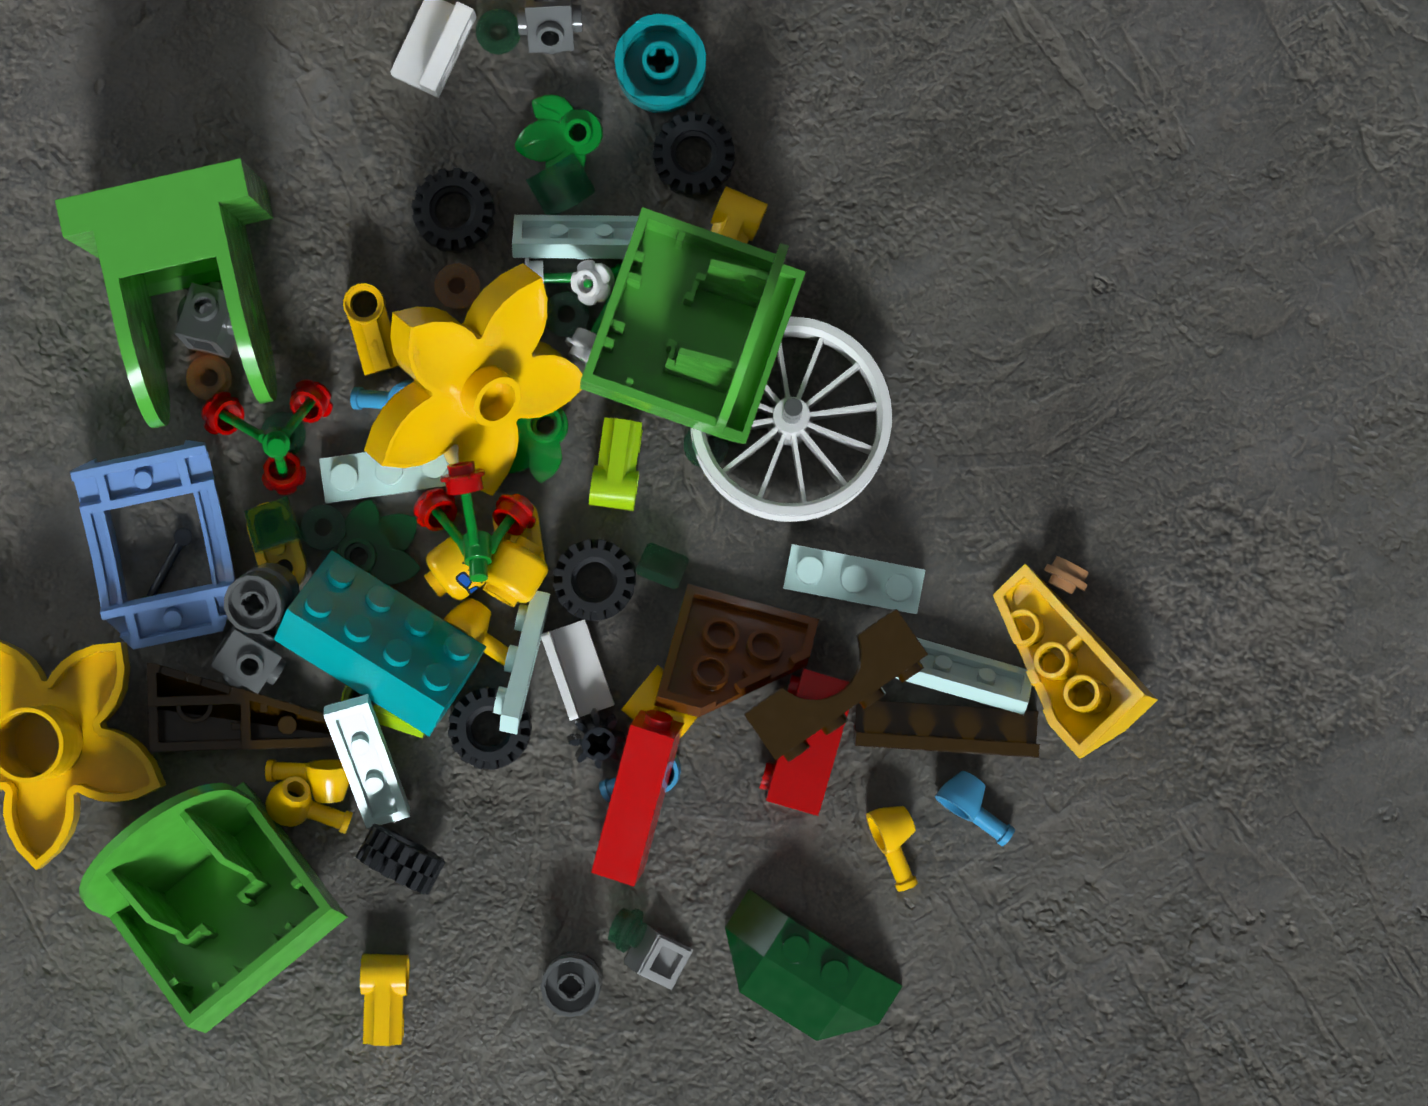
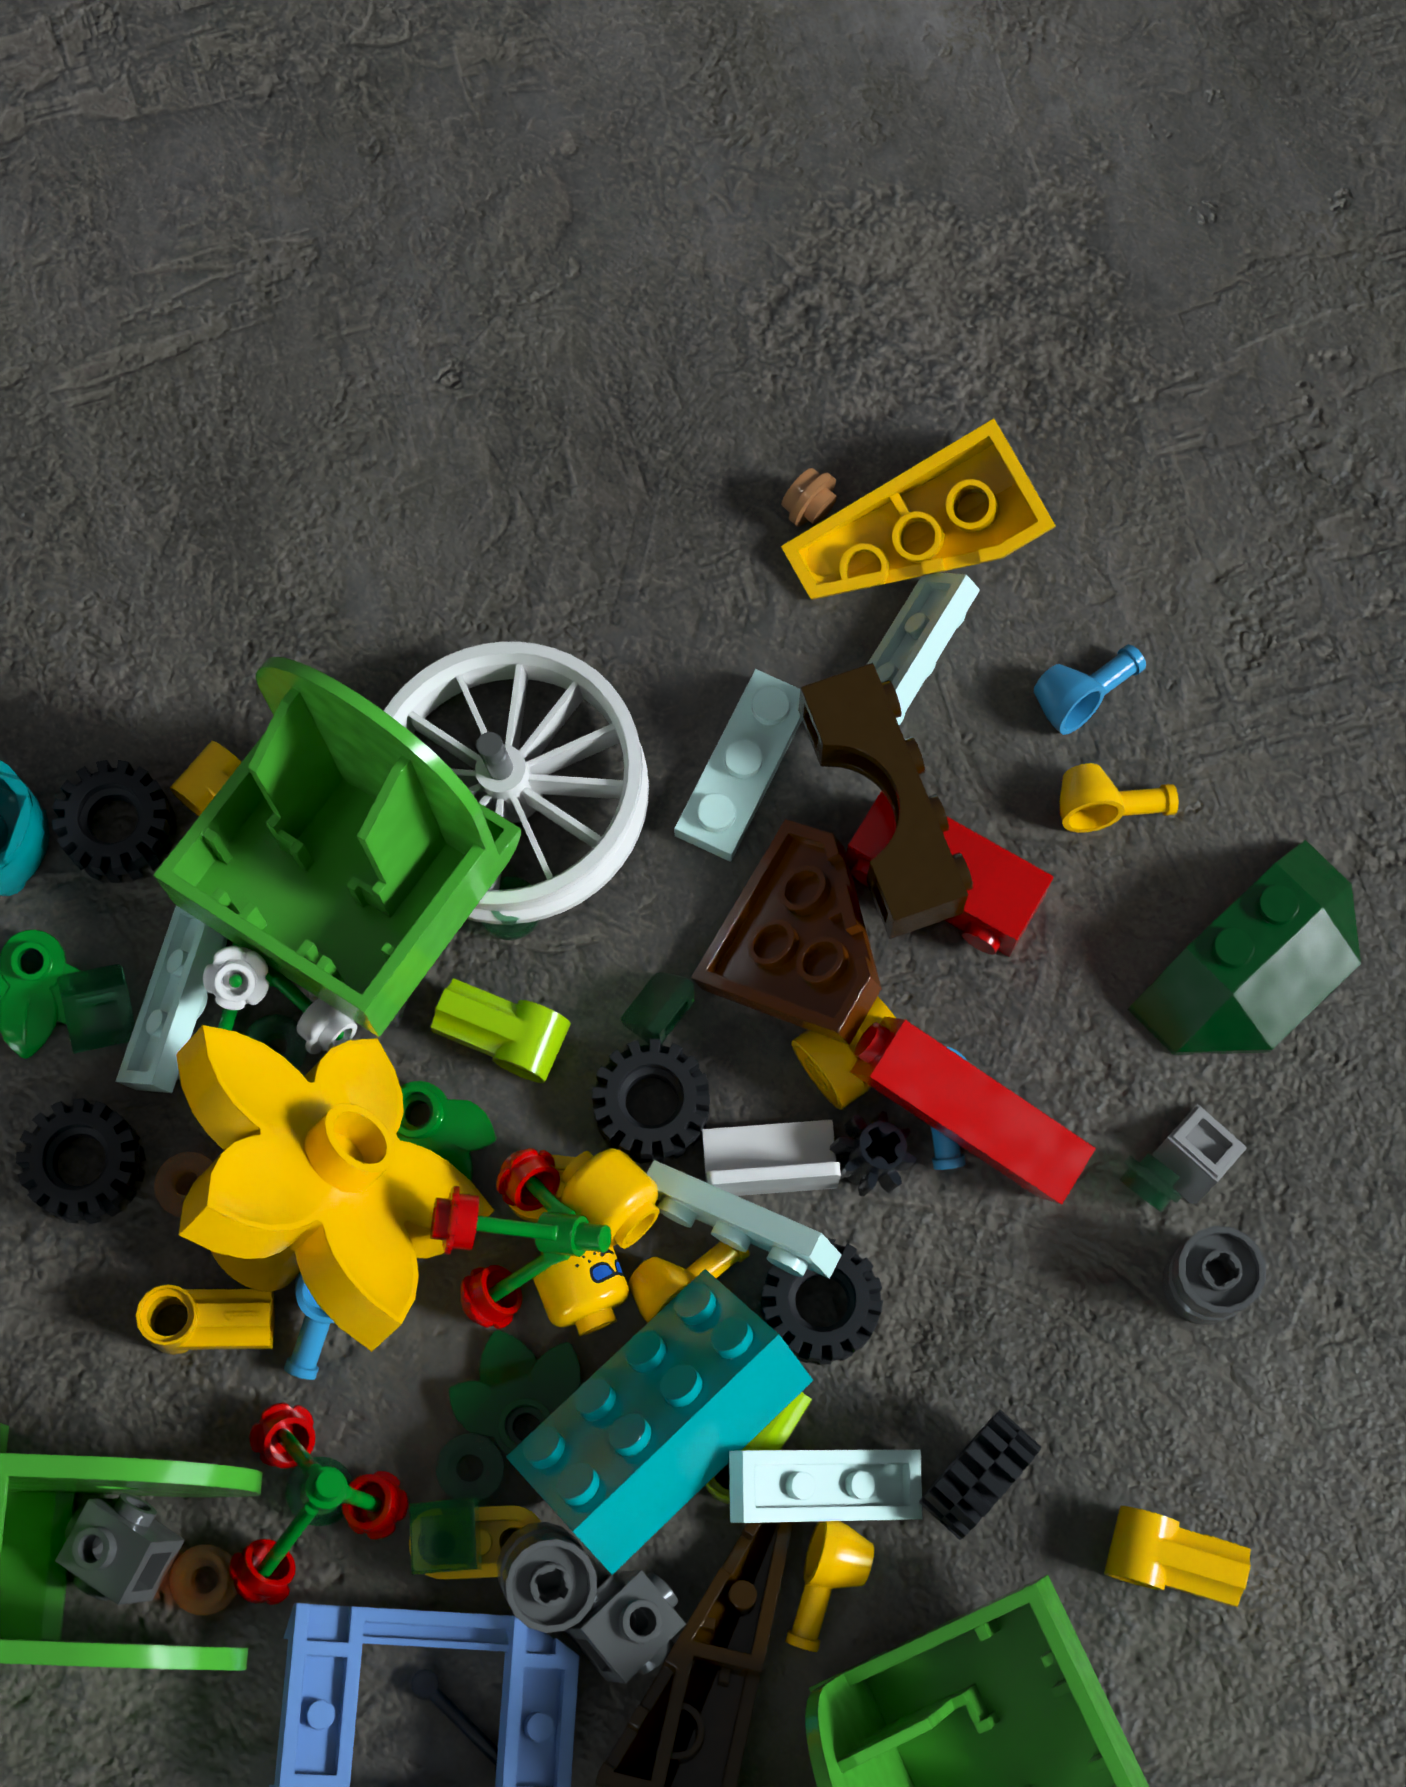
camera: 80 degrees left, 15 degrees down
(295, 810) = (869, 1623): yellow bar -> none
(362, 477) = (420, 1362): light aqua plate -> none
(946, 728) = (975, 691): dark brown fence -> none

